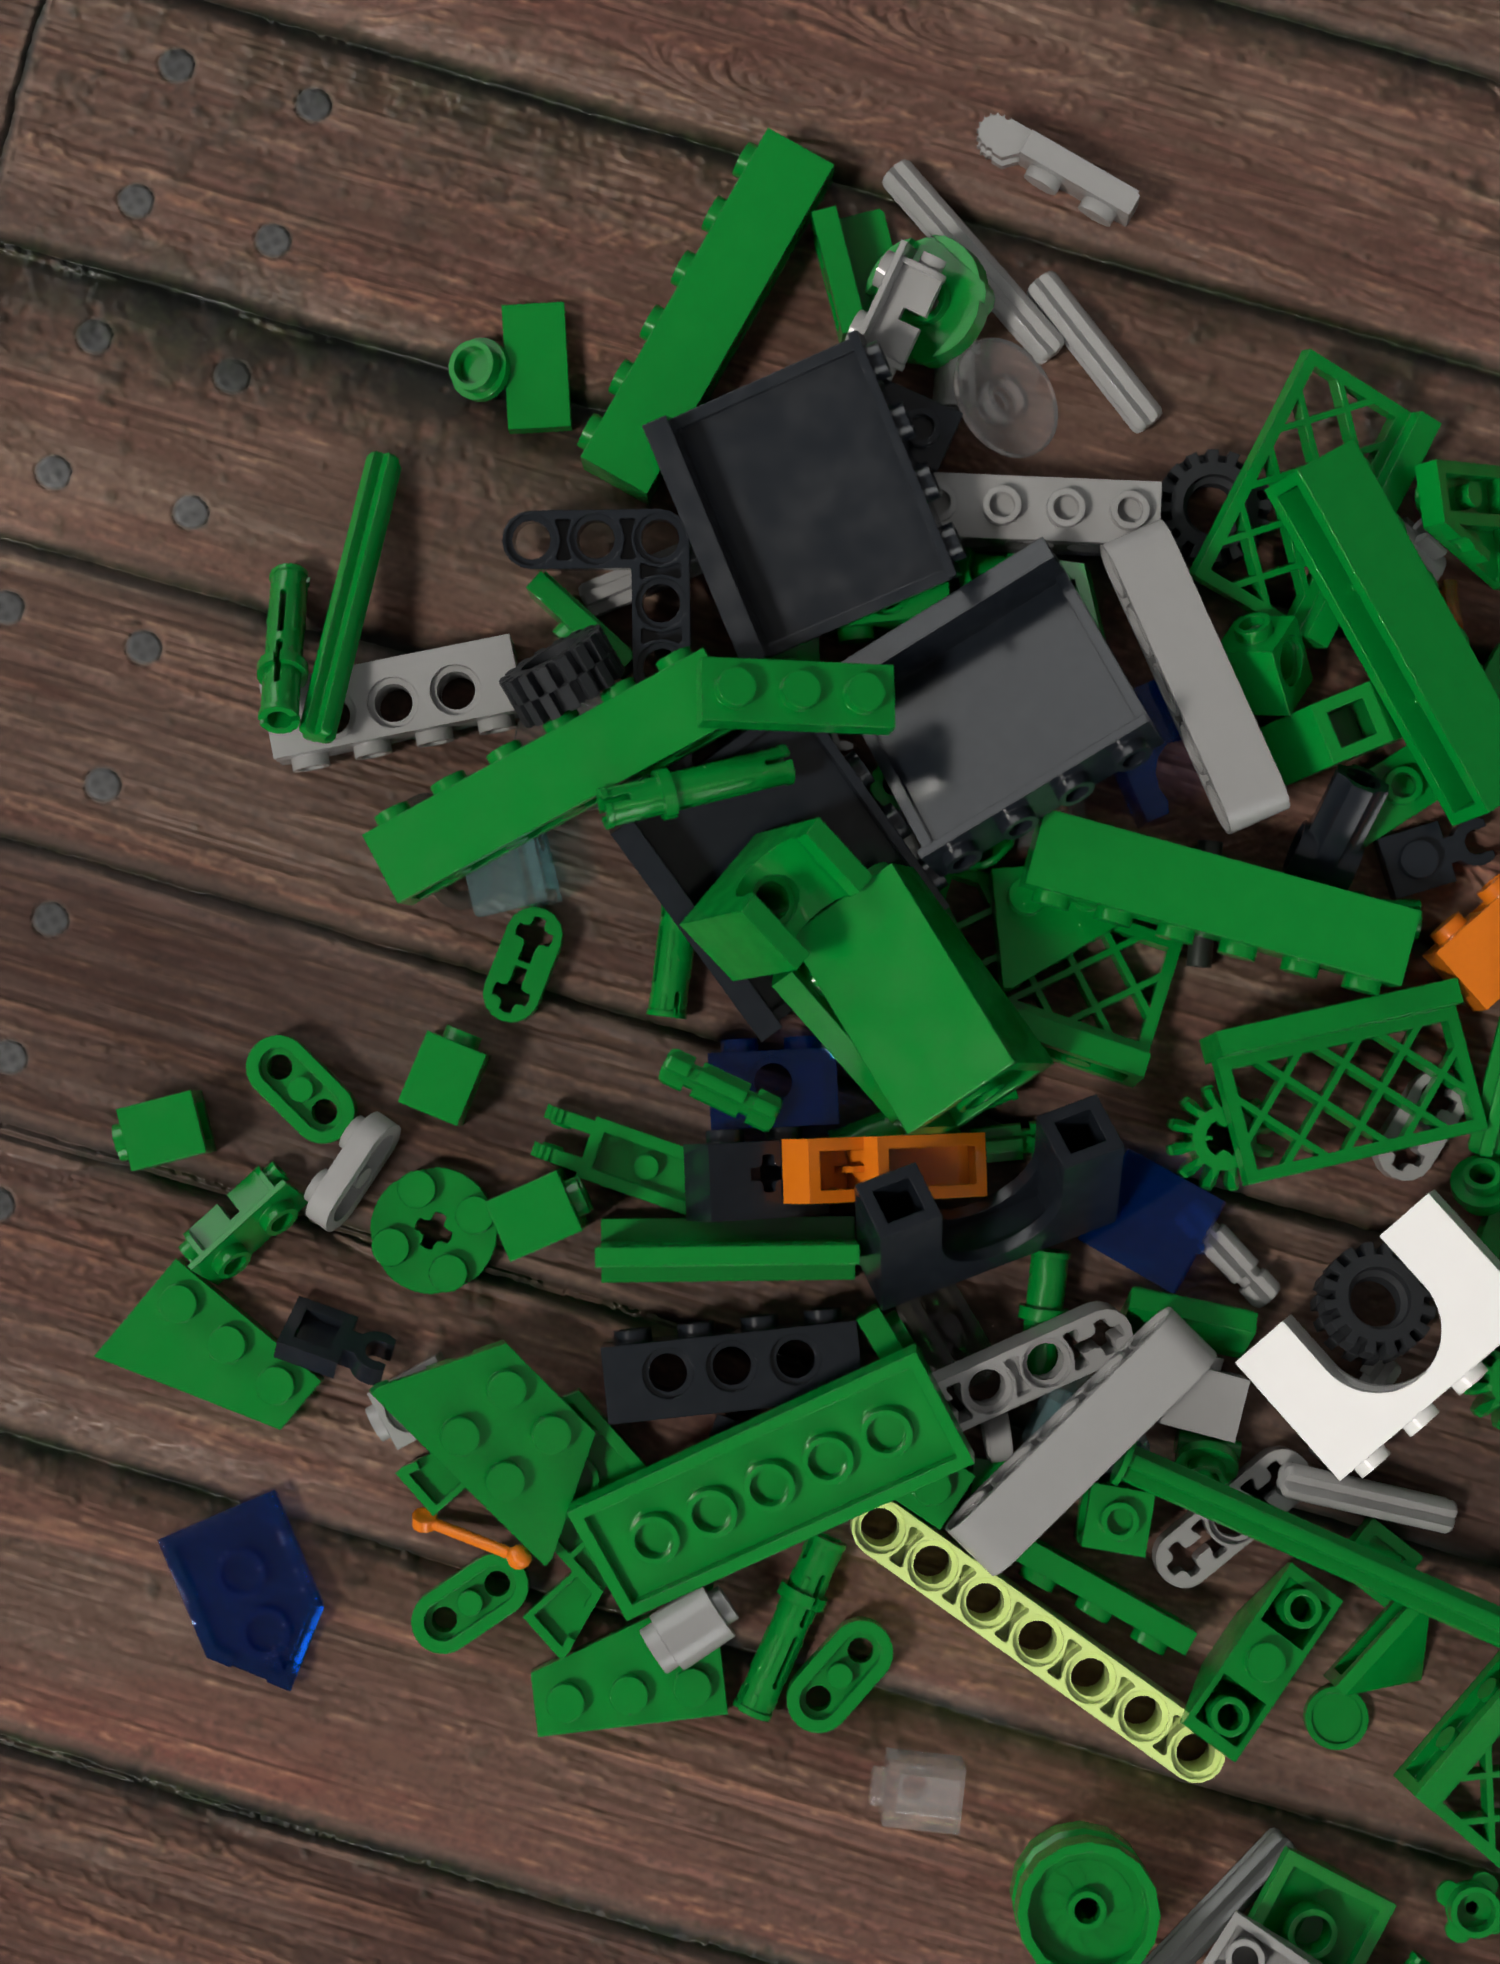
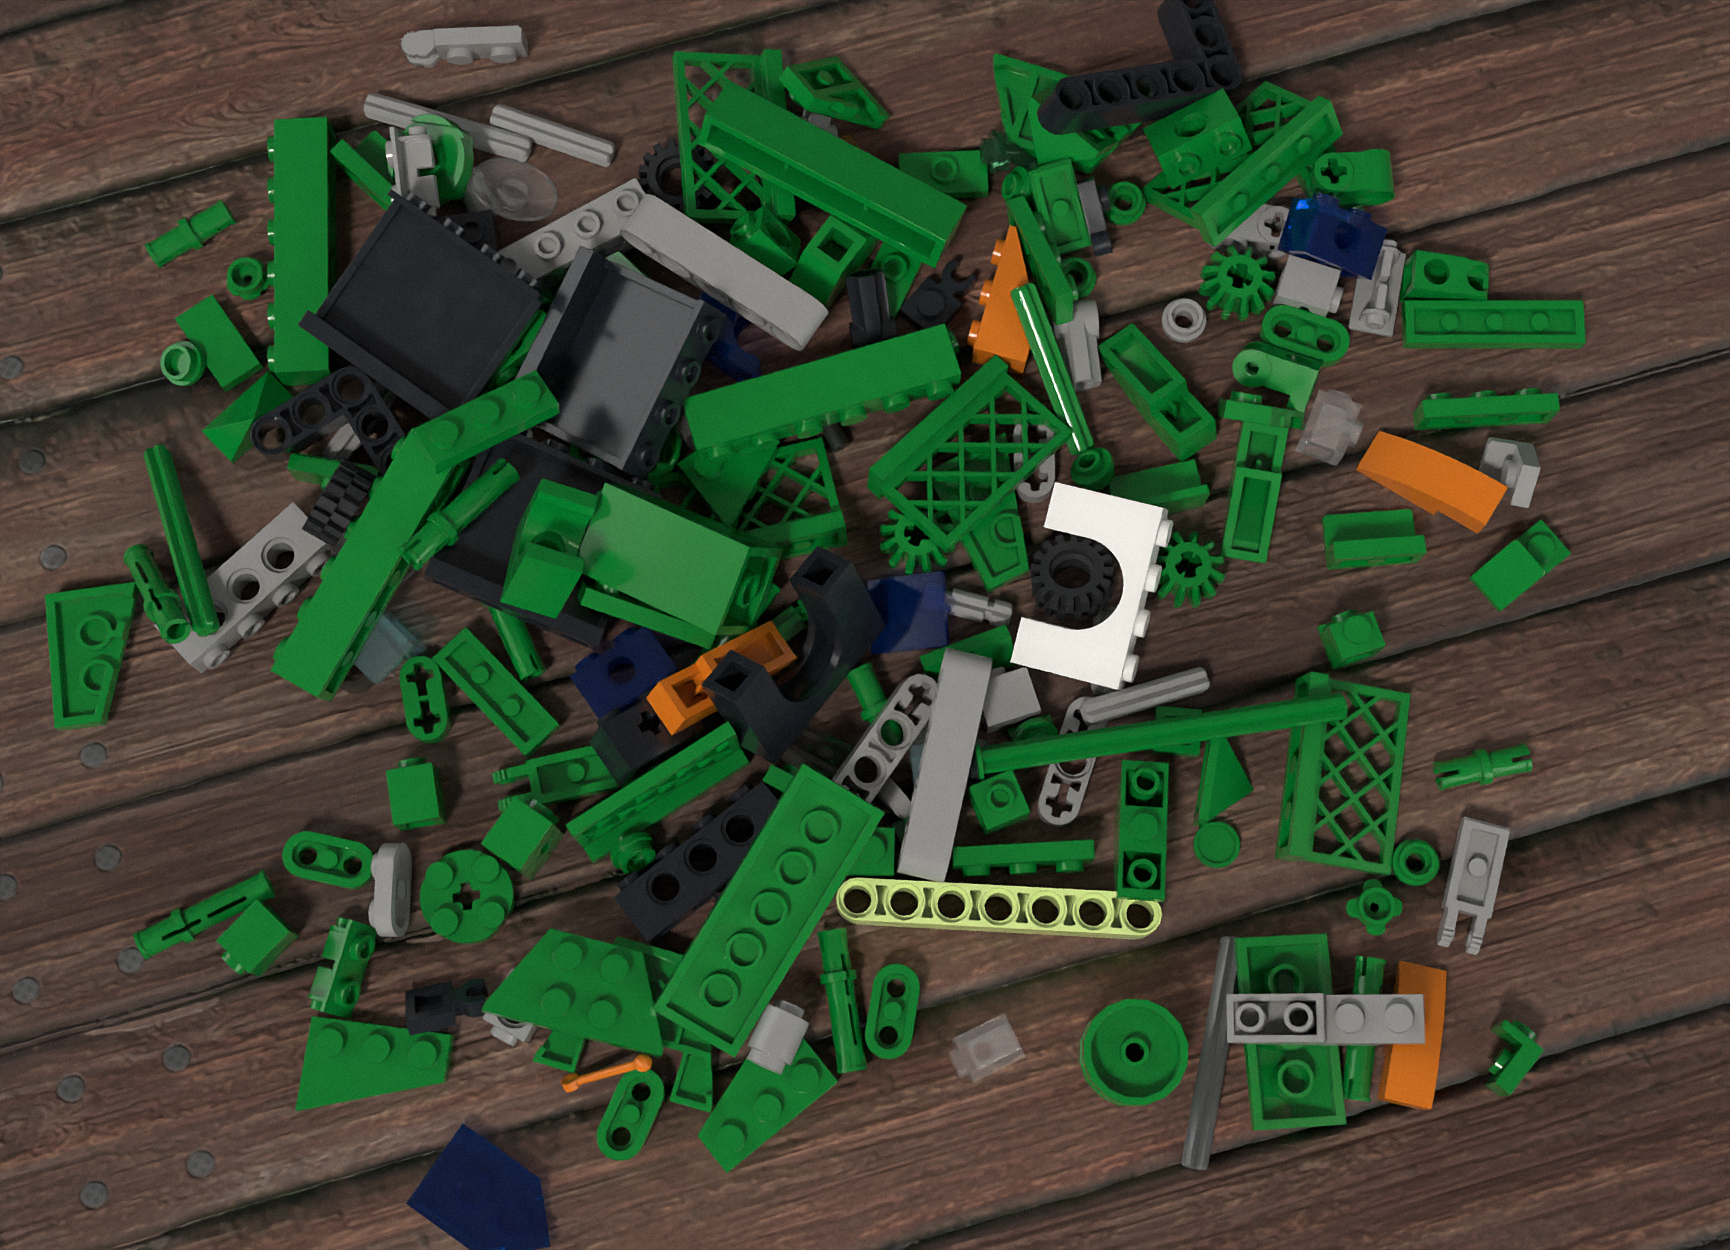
camera: 30 degrees left, 10 degrees down
(97, 1059) = (186, 923): none -> green pin
(165, 657) = (86, 650): none -> green wing
(520, 482) = (232, 428): none -> green slope
(582, 207) = (190, 233): none -> green pin
(611, 1010) = (496, 692): none -> green plate
(615, 291) = (239, 271): none -> green plate
(655, 1302) = (633, 852): none -> green plate
(720, 1090) = (589, 691): green axle -> none
(1311, 1207) = (997, 541): none -> green wing

